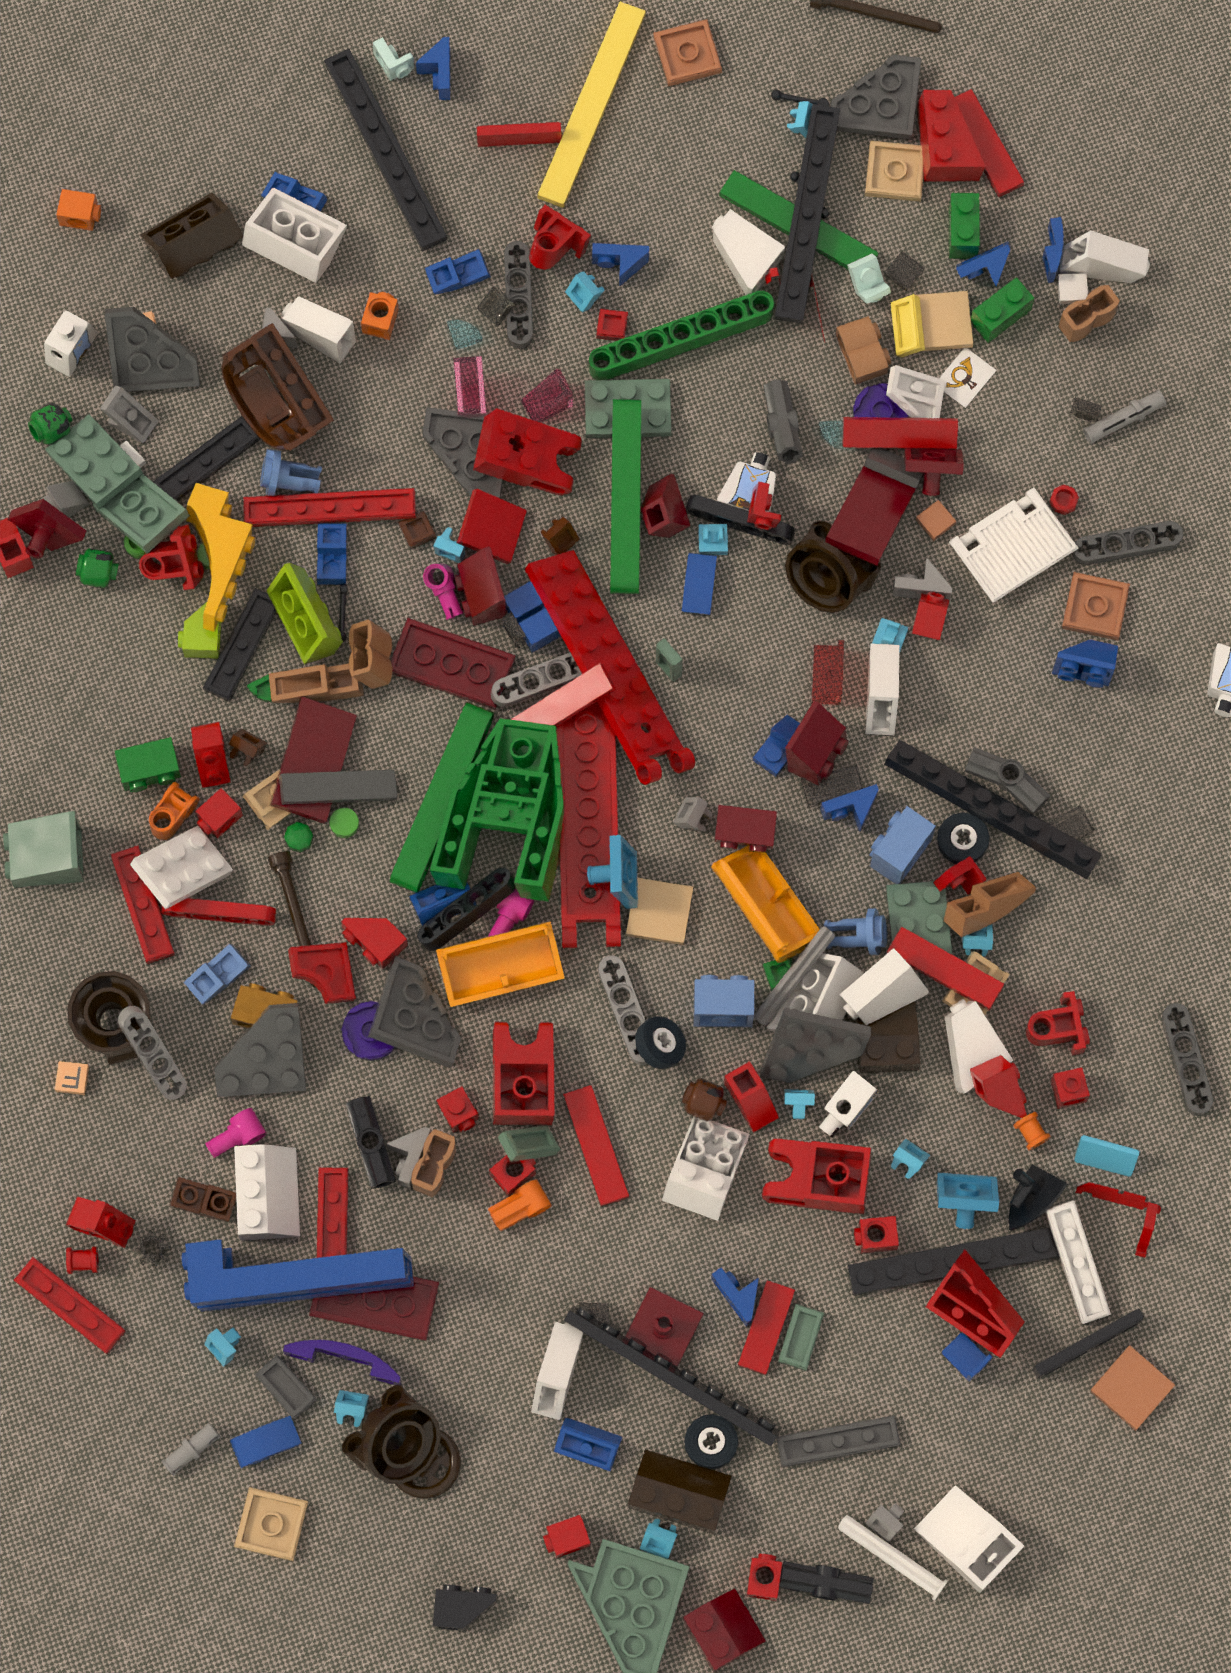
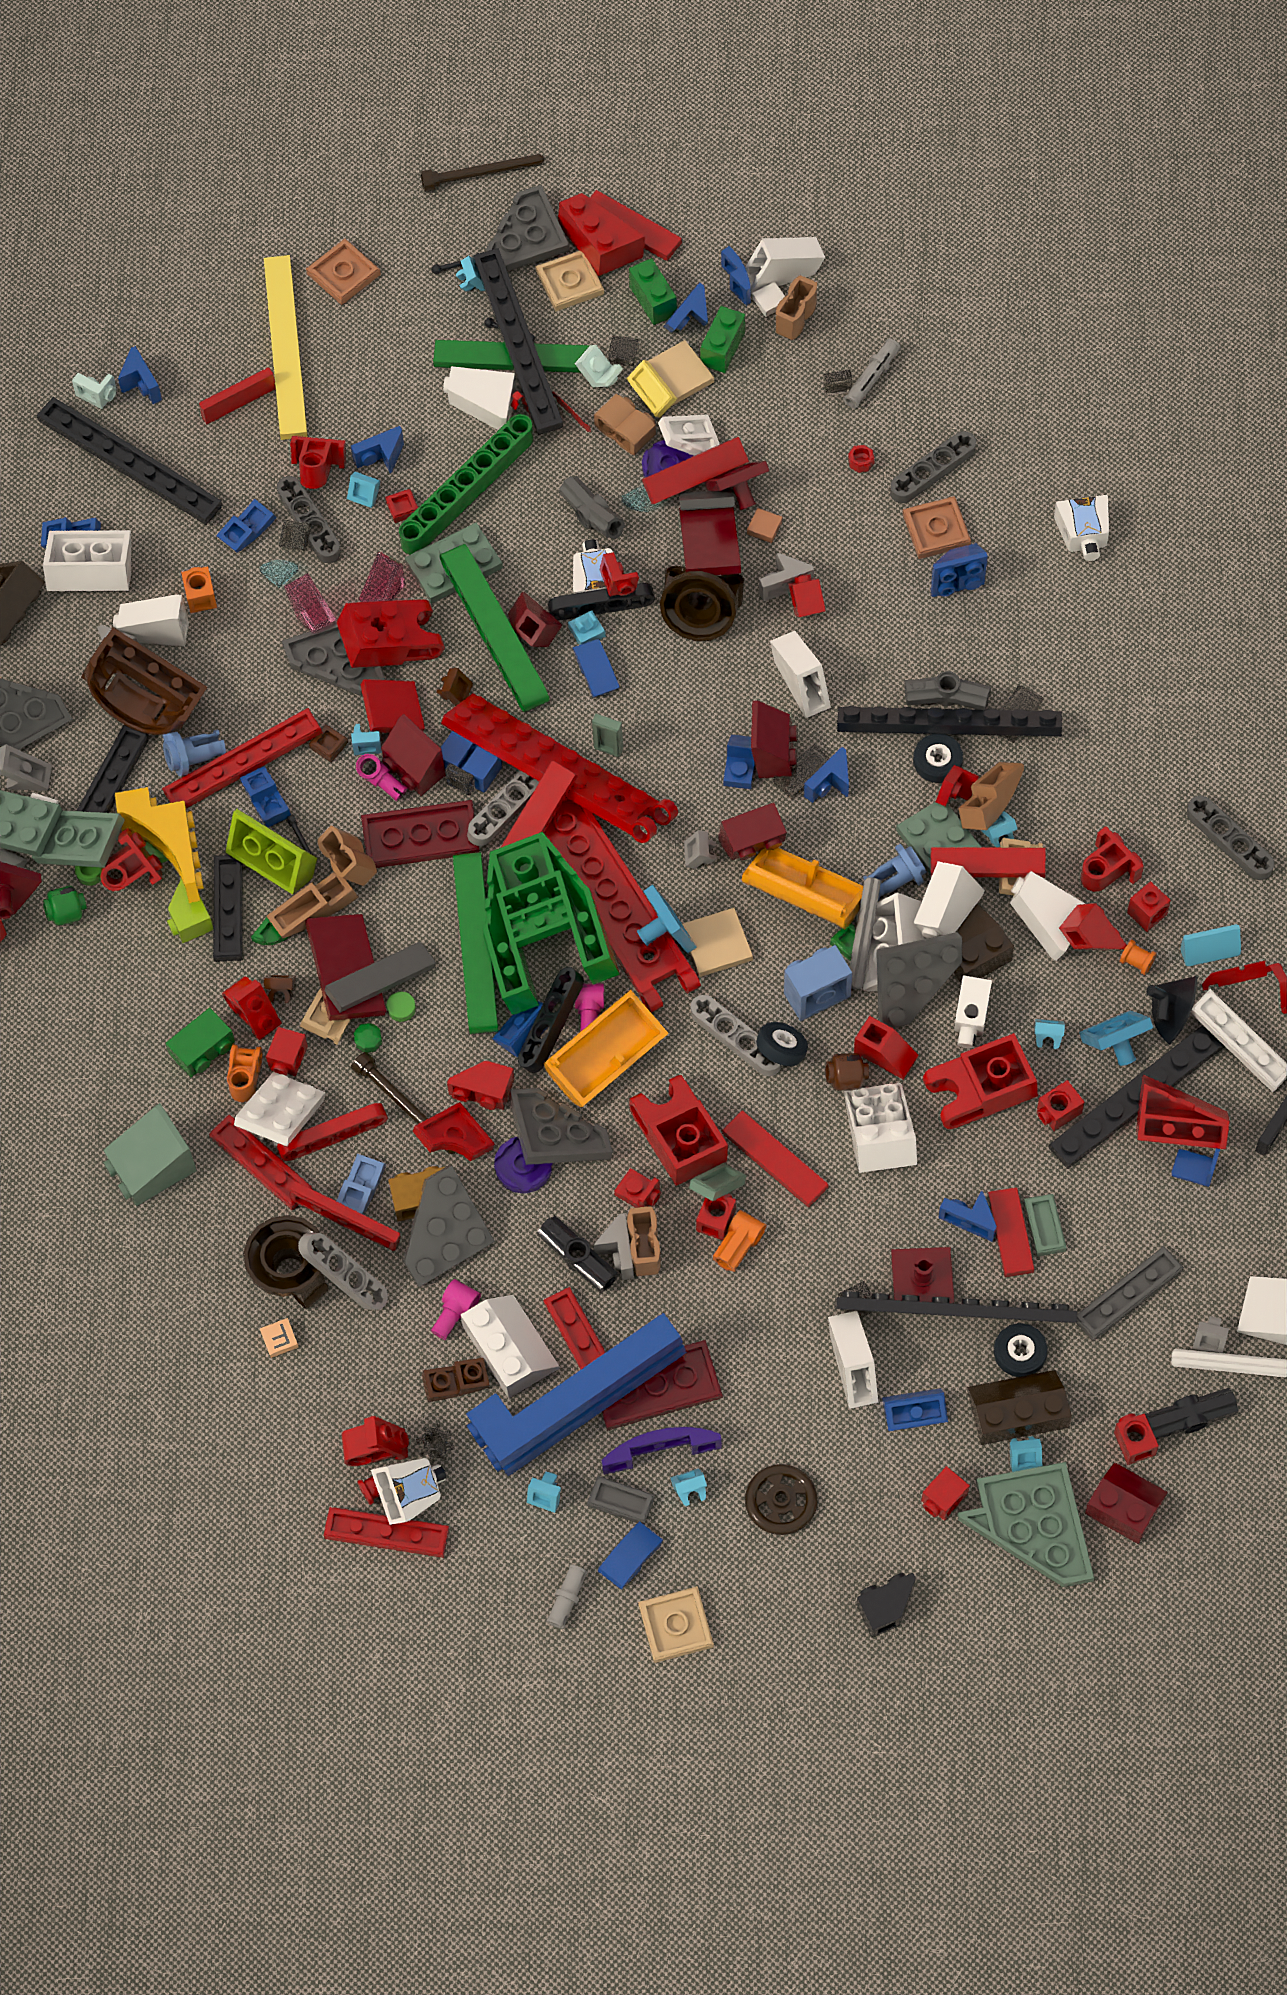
camera: 25 degrees left, 10 degrees down
(105, 1279) = (408, 1488): none -> white torso
(185, 998) = (344, 1216): none -> red tile
(395, 1439) = (746, 1487): dark brown piece -> none
(799, 1099) = (928, 1033): medium azure tile -> none
(828, 673) = (747, 682): clear red panel -> none
(890, 633) = (778, 627): medium azure tile -> none
(902, 845) = (891, 783): medium blue brick -> none
(966, 377) = (723, 406): white sticker -> none
(1013, 545) = (841, 512): white window -> none

